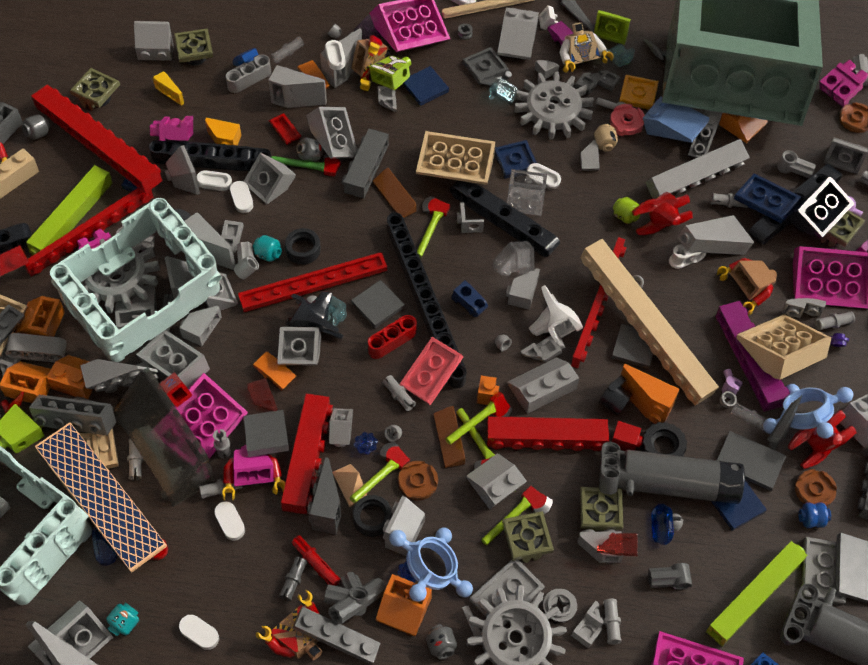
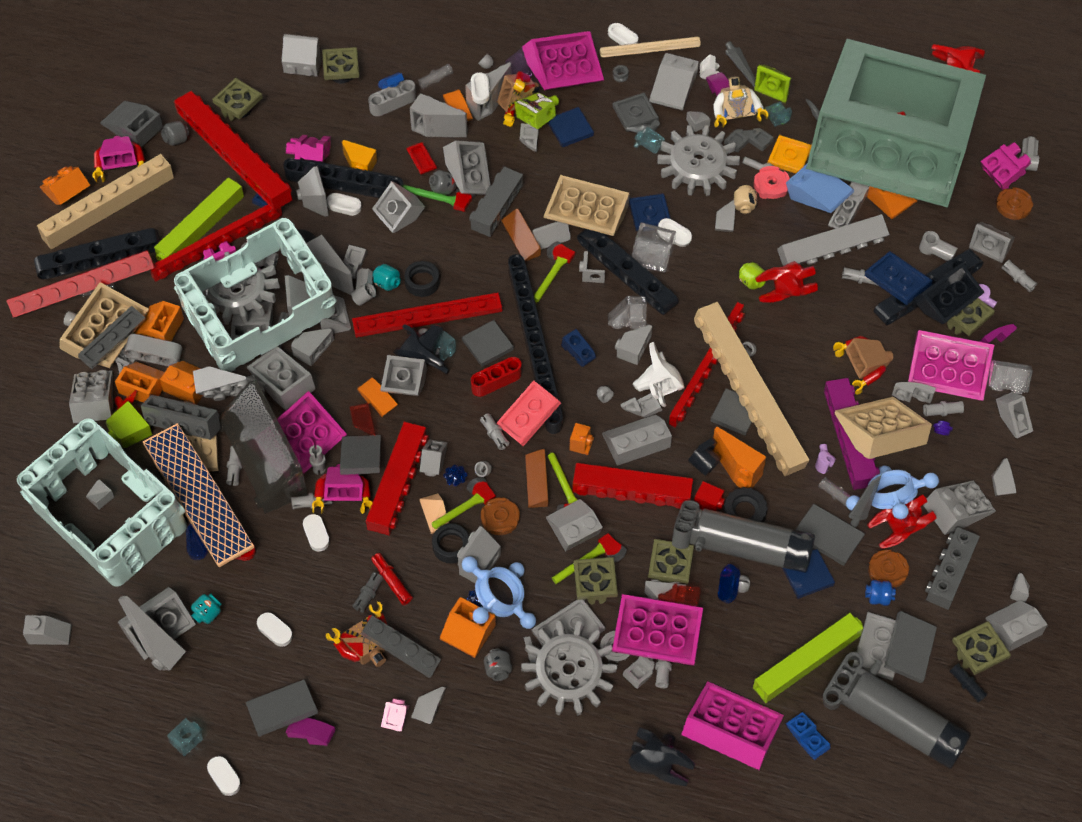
camera: 10 degrees right, 0 degrees up
(167, 87) = (309, 104): yellow slope -> none
(176, 389) = (279, 403): red brick -> none
(241, 197) = (368, 223): white tile -> none
(325, 508) = (406, 529): dark grey slope -> none
(352, 597) = (419, 614): dark grey piece -> none
(425, 188) = (551, 233): none -> light grey slope
(498, 407) = (587, 454): piece -> none
(601, 584) = (657, 629): none -> dark pink slope
(676, 576) = (733, 633): dark grey piece -> none
(682, 257) = (805, 326): white piece -> none
(716, 236) = (837, 311): light grey slope -> none
(731, 395) = (816, 469): light grey hinge -> none

